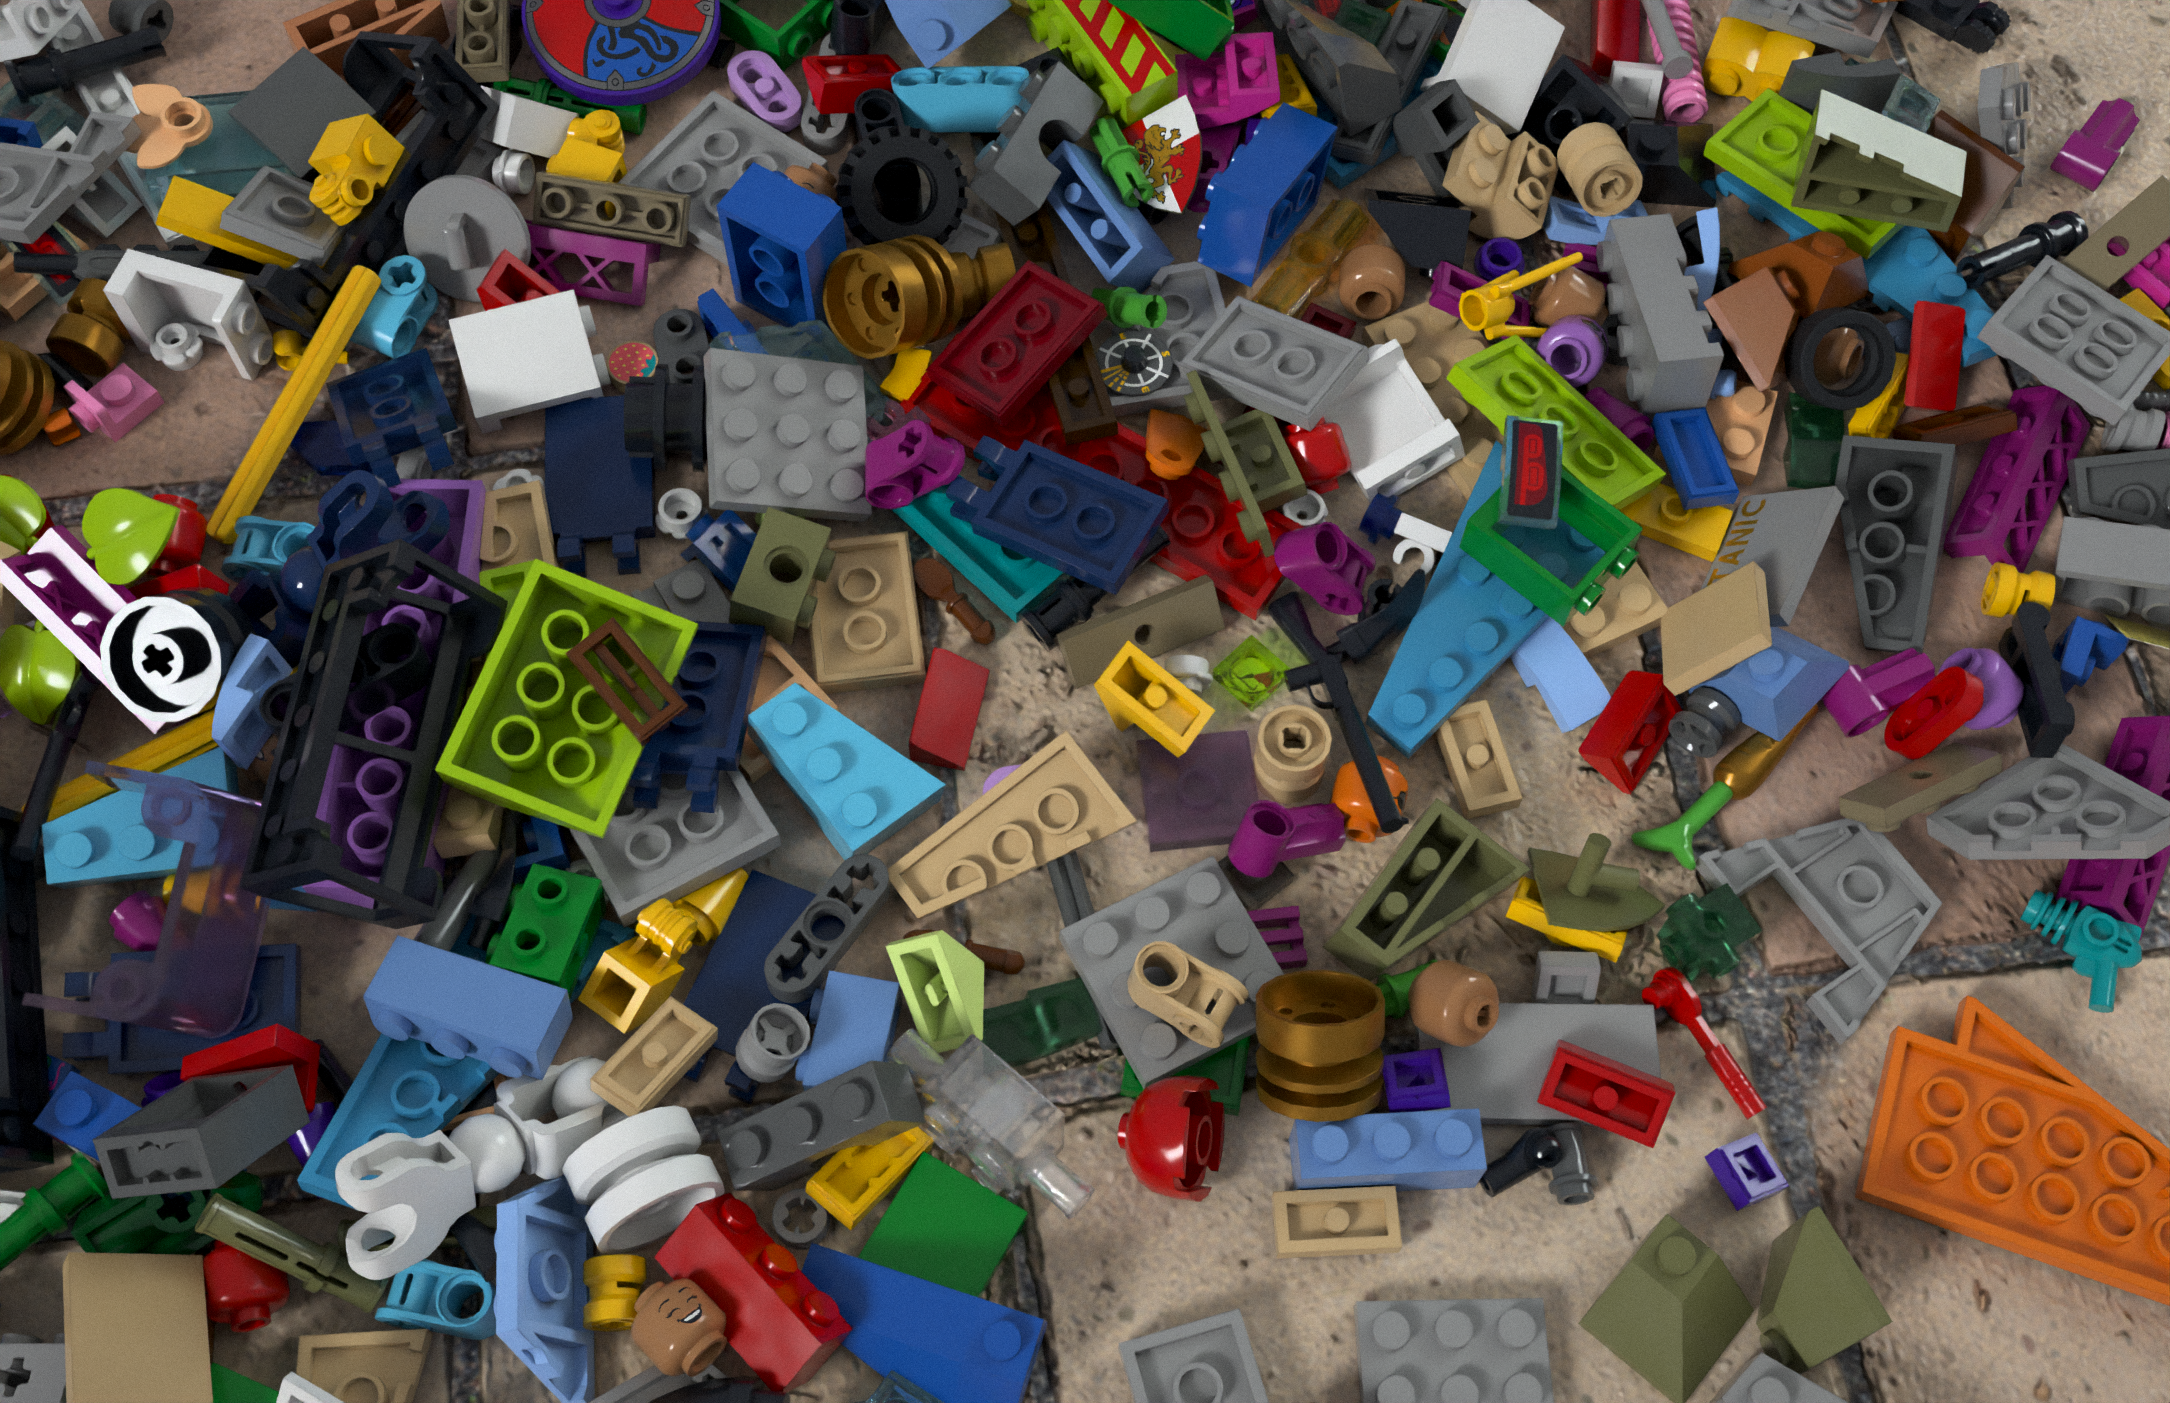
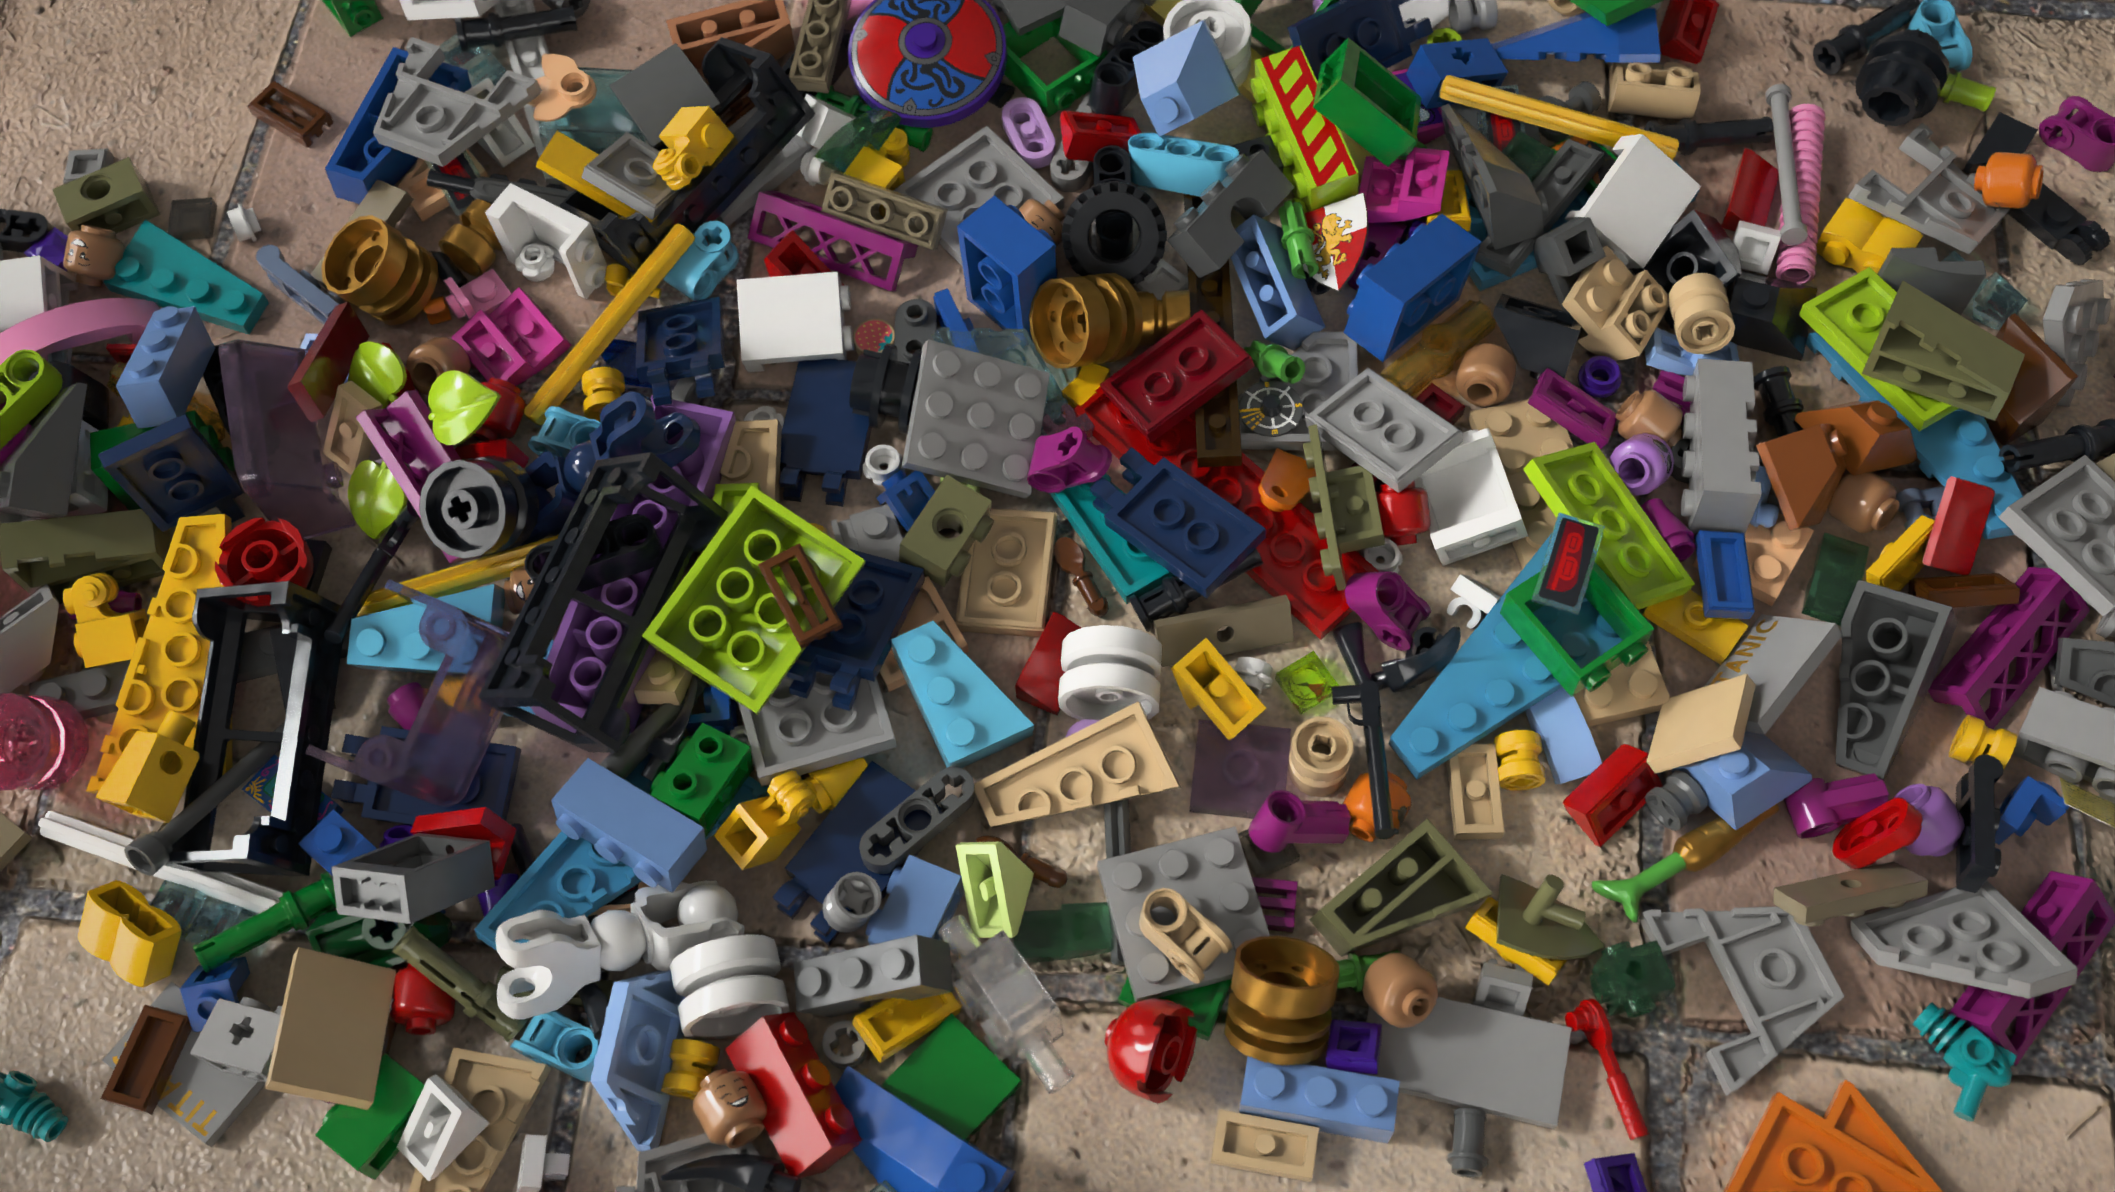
camera: 20 degrees right, 0 degrees up
(71, 488) = (433, 359): none -> medium nougat head
(168, 445) = (512, 340): none -> dark pink slope
(237, 717) = (507, 565): light blue slope -> none
(302, 484) = (601, 387): none -> yellow wheel
(460, 229) = (763, 207): light grey shield -> none
(568, 116) = (867, 130): none -> clear green slope
(654, 1058) = (759, 894): tan plate -> none
(1020, 703) = (1109, 671): none -> white wheel
(1381, 518) = (1444, 574): clear blue plate -> none
(1493, 303) = (1580, 412): yellow plant -> none
(1518, 712) = (1519, 760): none -> yellow wheel
(1531, 1153) = (1436, 1128): black arm -> none
(1606, 1093) = (1512, 1091): red slope -> none
(1710, 241) = (1771, 421): light blue slope -> none
(1877, 366) = (1895, 537): black tyre -> none

